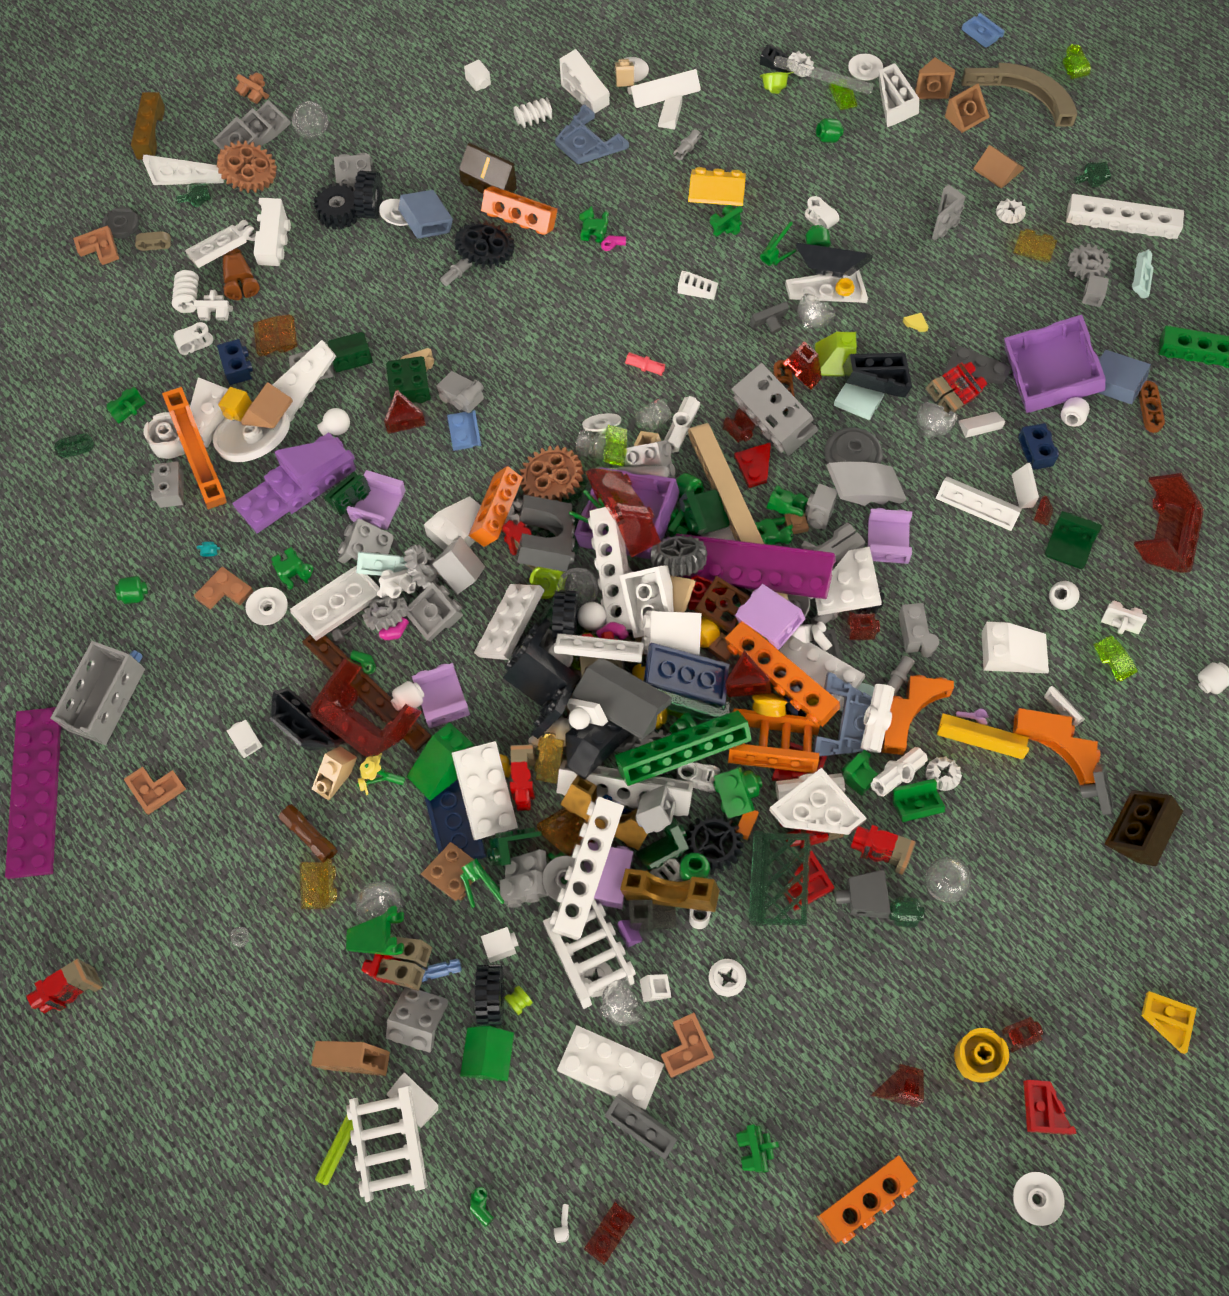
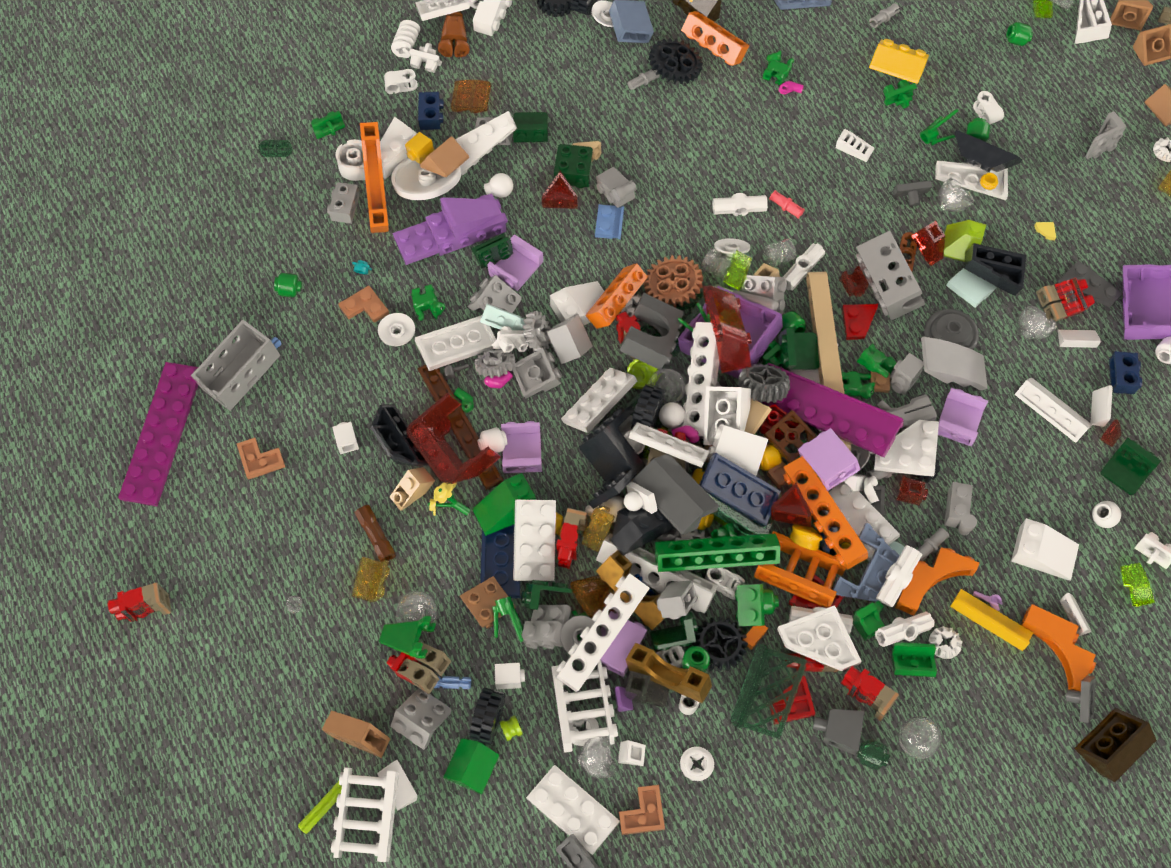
camera: 15 degrees right, 0 degrees up
(596, 376) = (739, 204): none -> white piece

